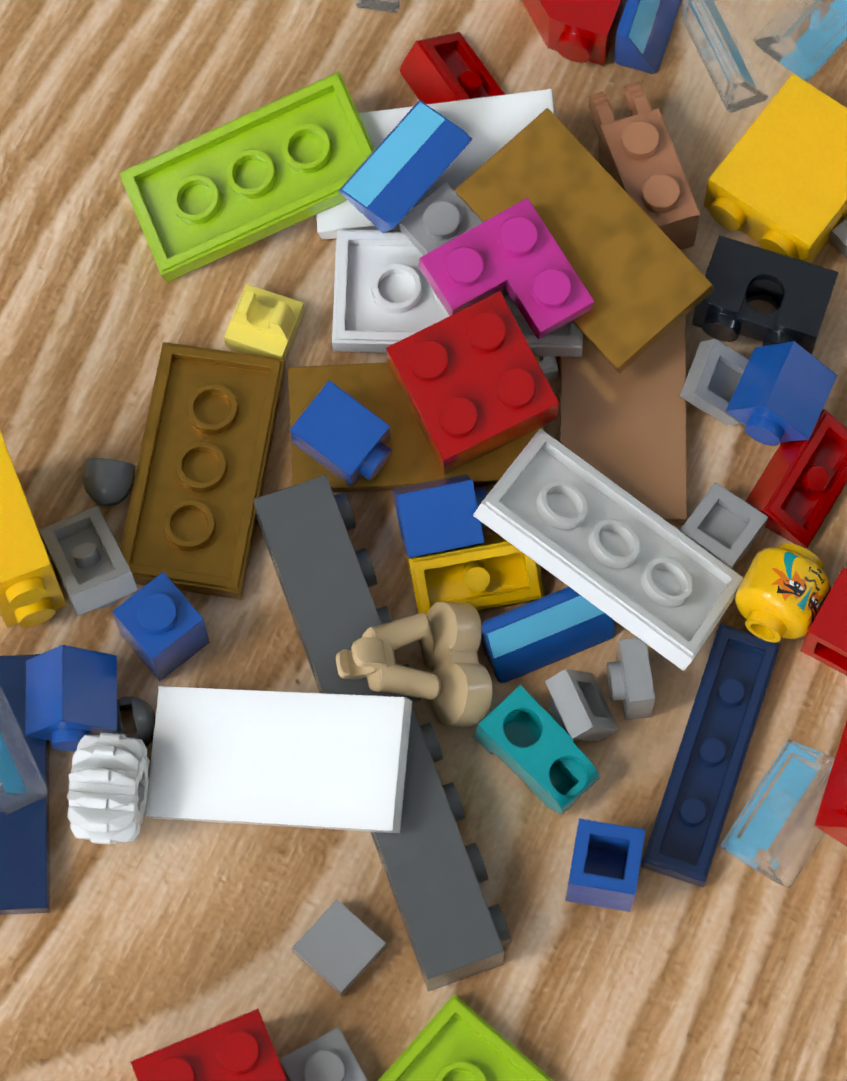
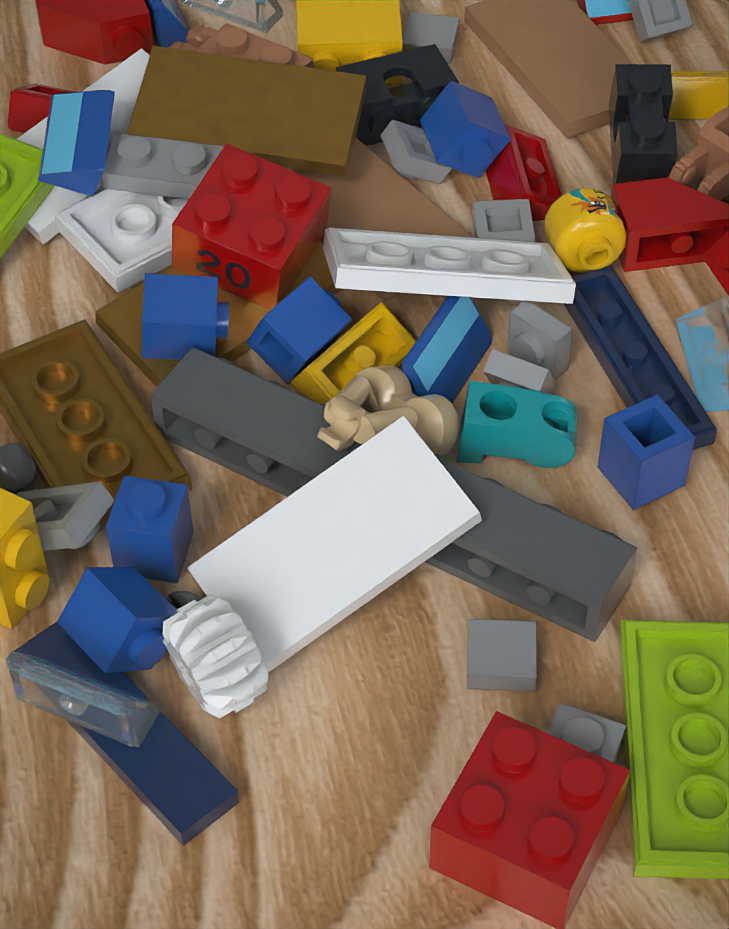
camera: 40 degrees left, 20 degrees down
(264, 323) = (45, 306): light yellow tile -> none
(512, 254) = (202, 131): dark pink plate -> none

